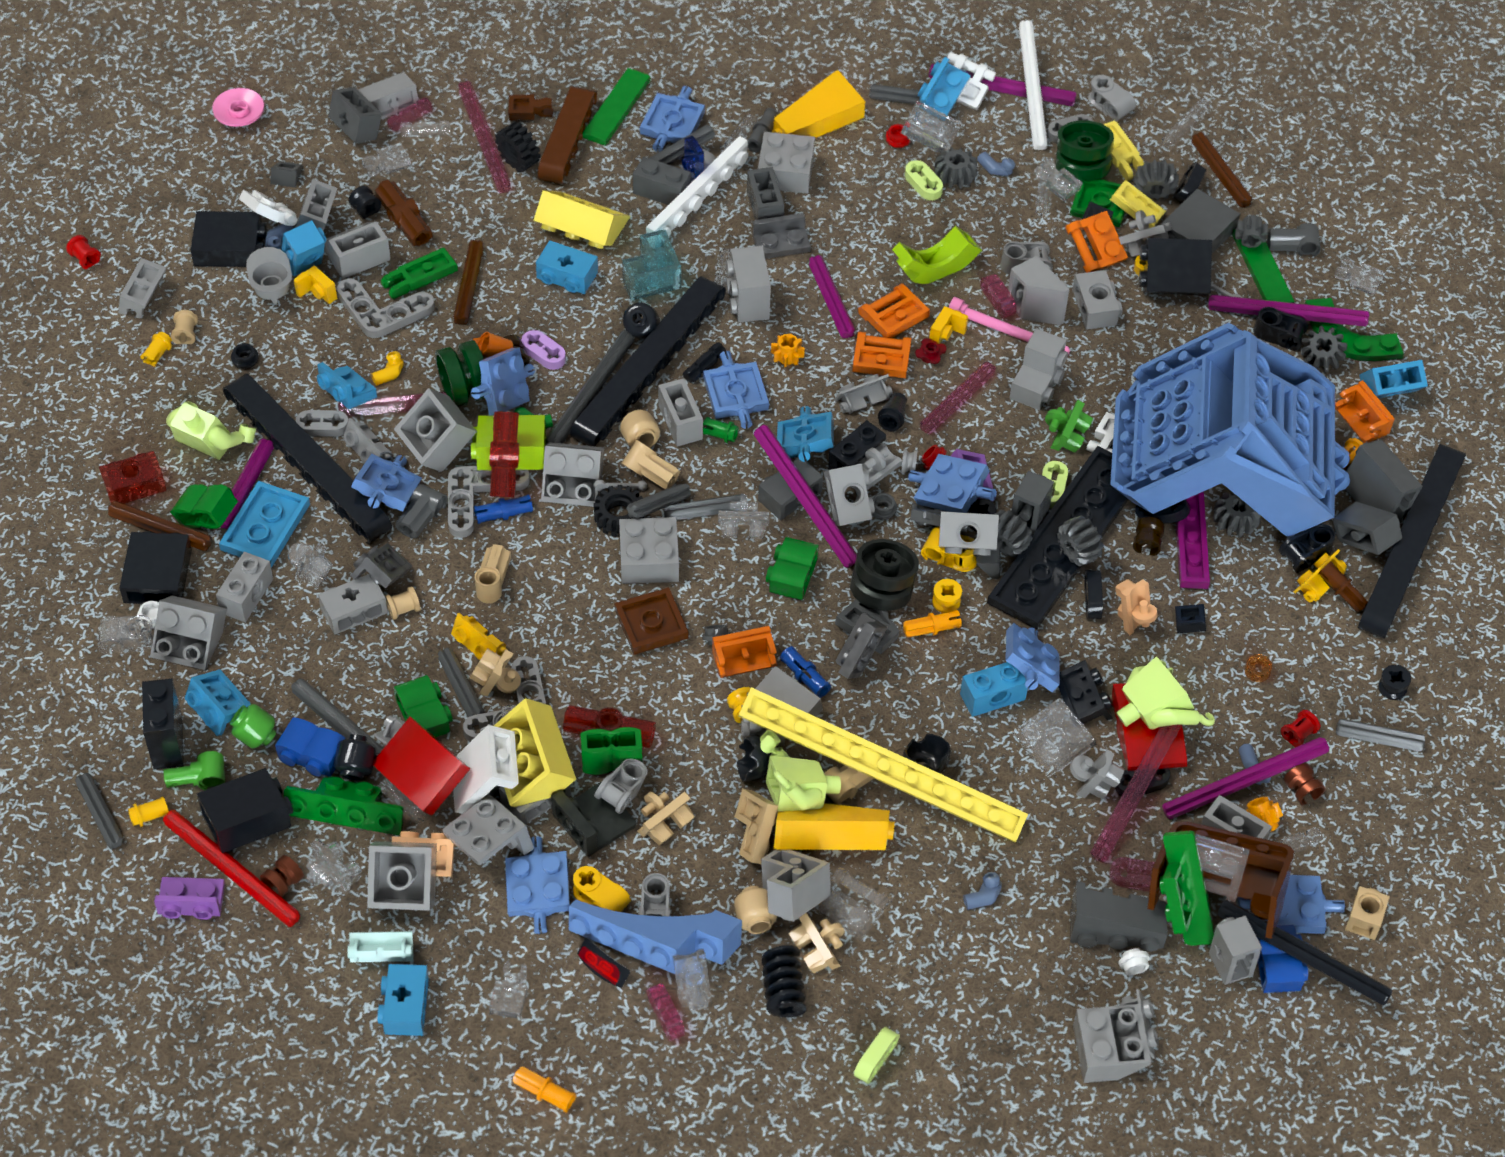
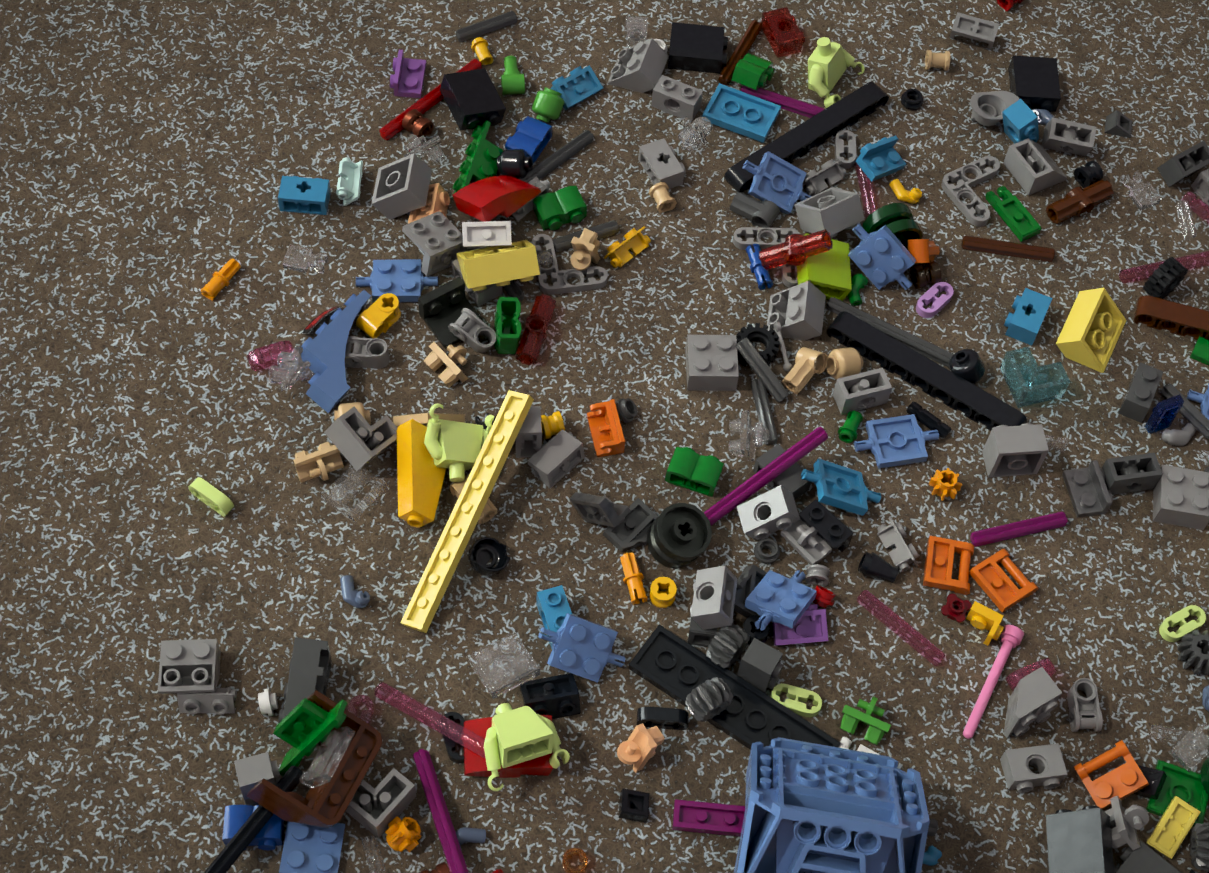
camera: 90 degrees right, 5 degrees up
(156, 349) = (915, 45): yellow pin -> none
(162, 724) = (544, 46): black brick -> none
(238, 107) = (1185, 88): bright pink dish -> none
(262, 205) = (1066, 97): white plate -> none
(317, 283) = (991, 140): yellow bracket -> none
(382, 564) = (691, 179): flat silver bracket -> none
(492, 574) = (683, 253): tan piece -> none
(651, 621) = (642, 364): reddish brown plate -> none
(705, 184) = (1136, 422): white plate -> none
(783, 981) = (283, 434): black piece -> none
(793, 660) = (585, 474): blue pin -> none
(944, 258) = (1061, 609): lime arch -> none
(1040, 370) = (927, 696): light grey brick -> none
(1097, 775) = (455, 687): light grey hips -> none
(1149, 534) = (730, 778): dark brown wheel -> none

